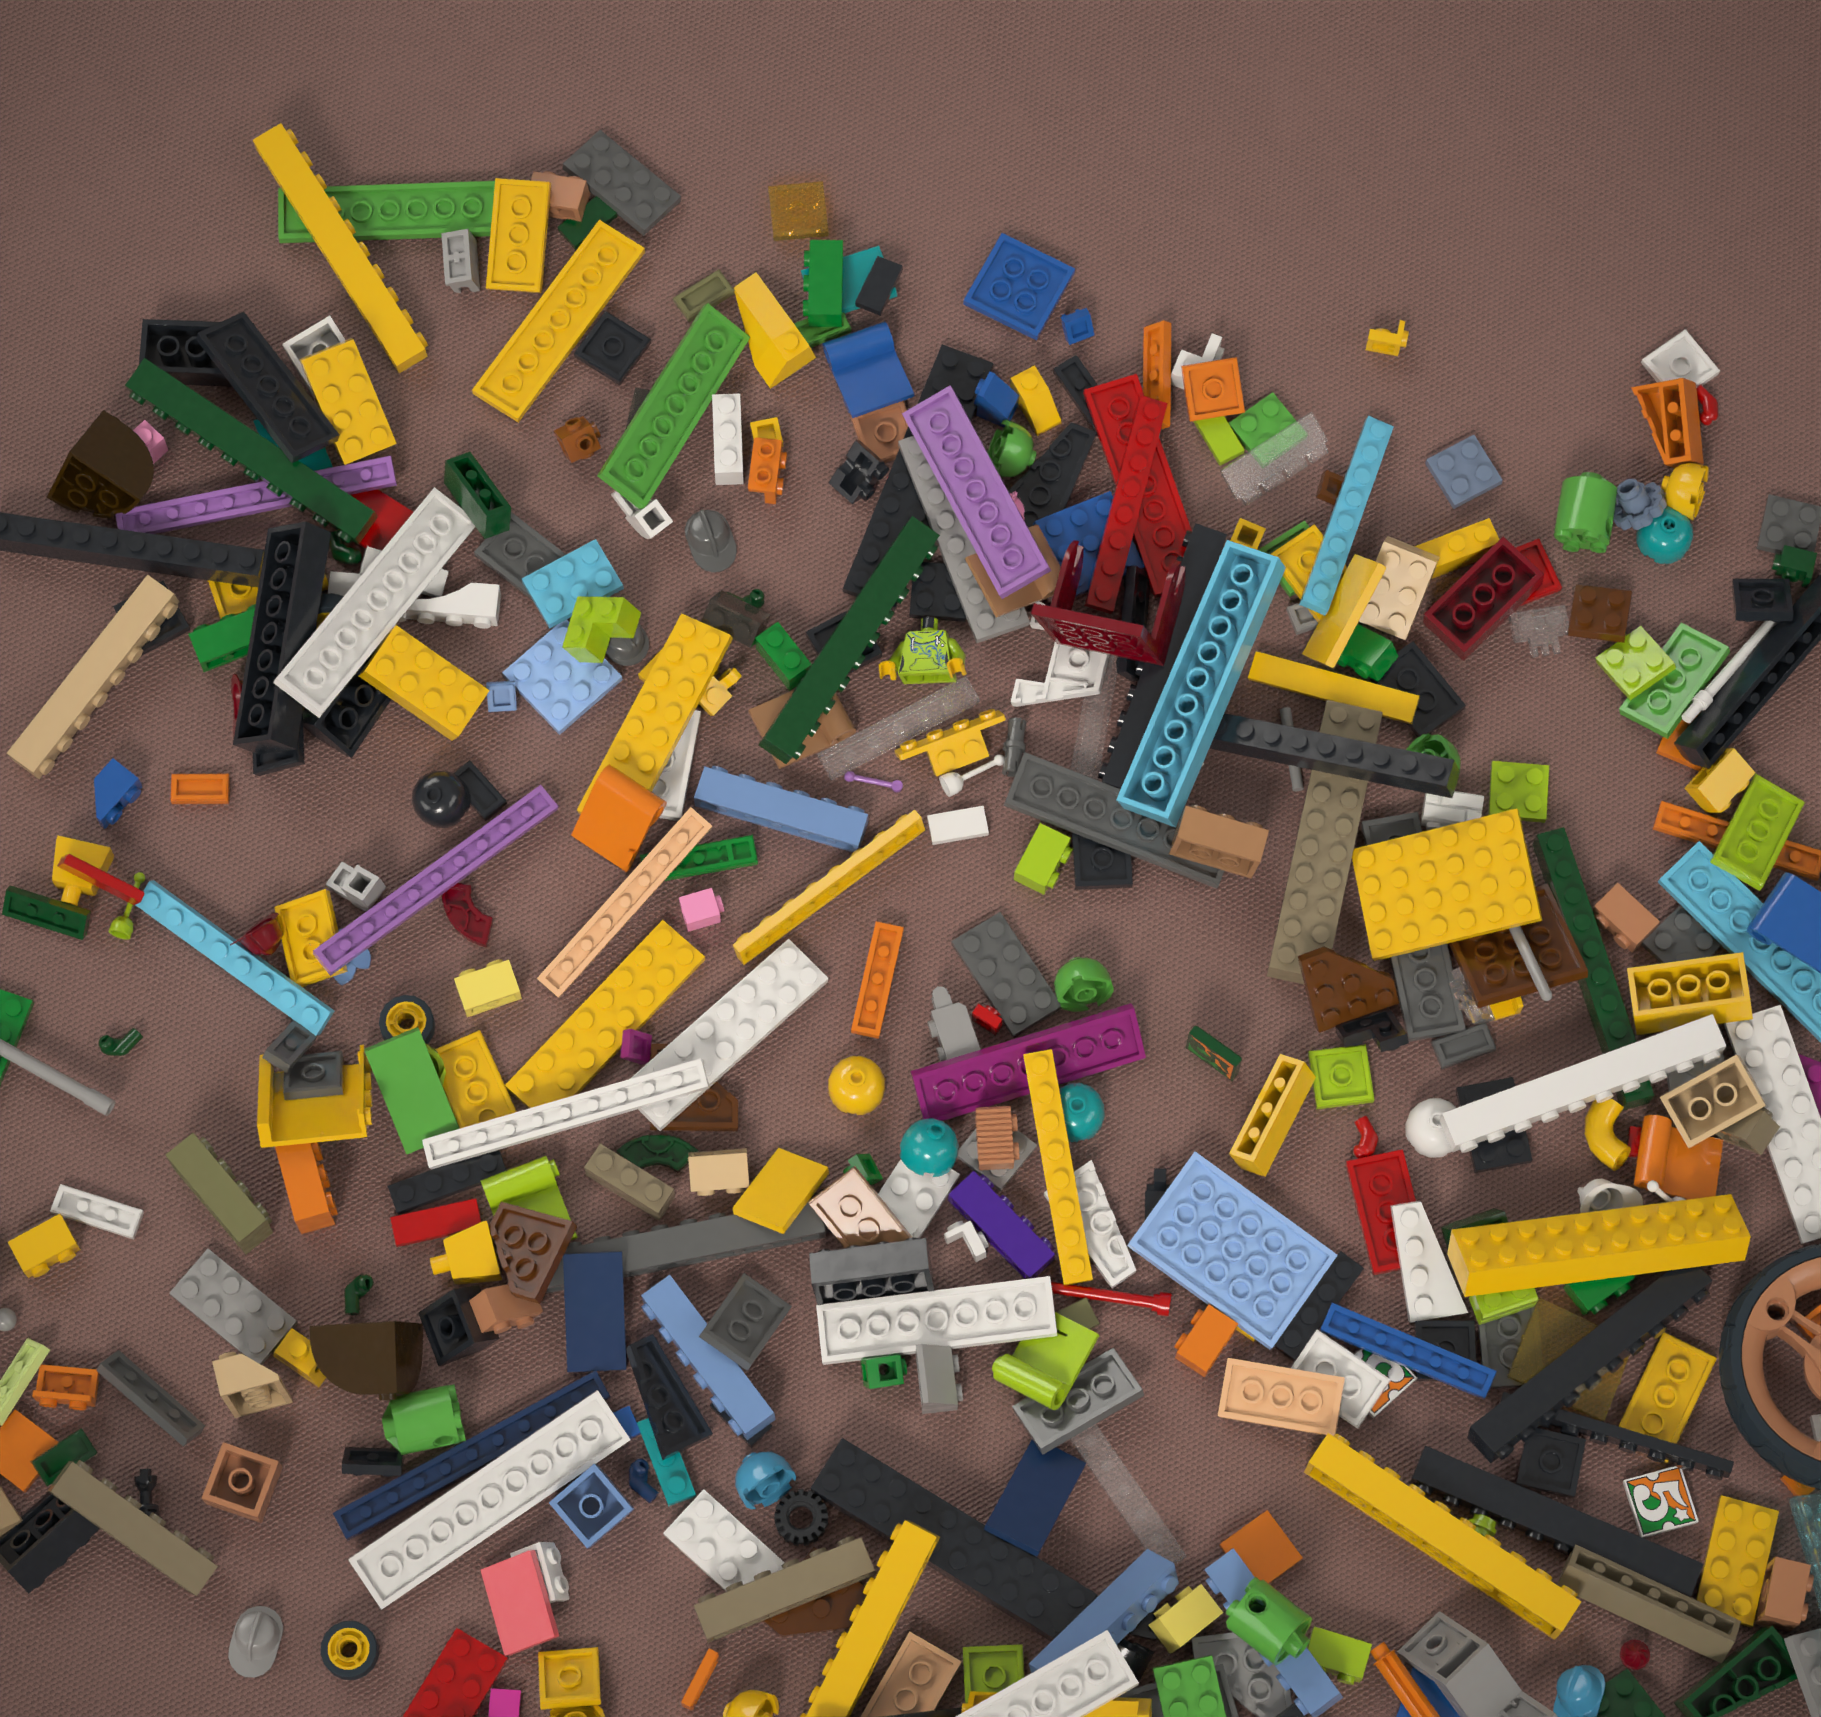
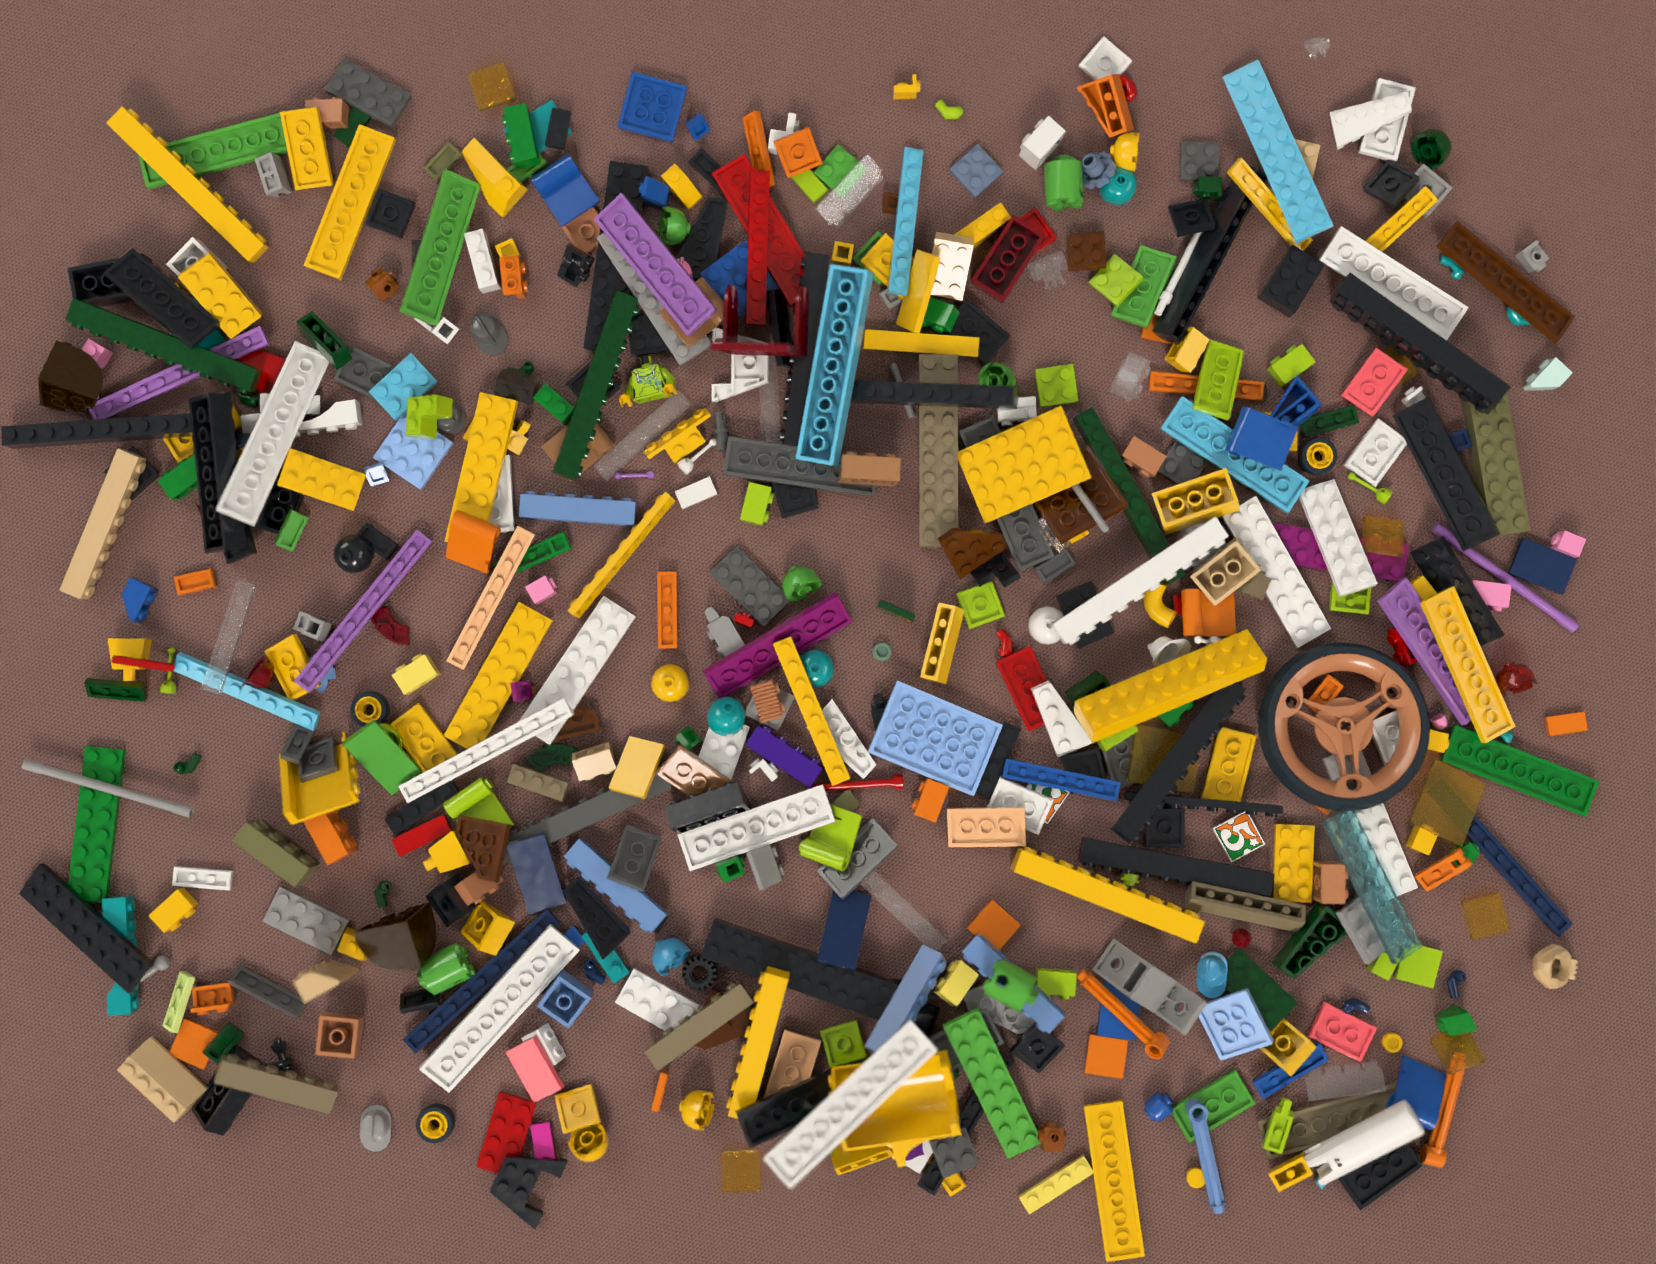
camera: 15 degrees left, 15 degrees up
(230, 874) = (228, 637): none -> clear tile
(358, 746) = (291, 530): none -> bright green tile
(501, 1378) = (487, 928): none -> yellow slope
(1180, 1111) = (881, 651): none -> sand green tile
(1442, 384) = (949, 112): none -> lime arm
(1565, 450) = (1042, 142): none -> white brick
(1624, 802) = (1129, 377): none -> clear brick

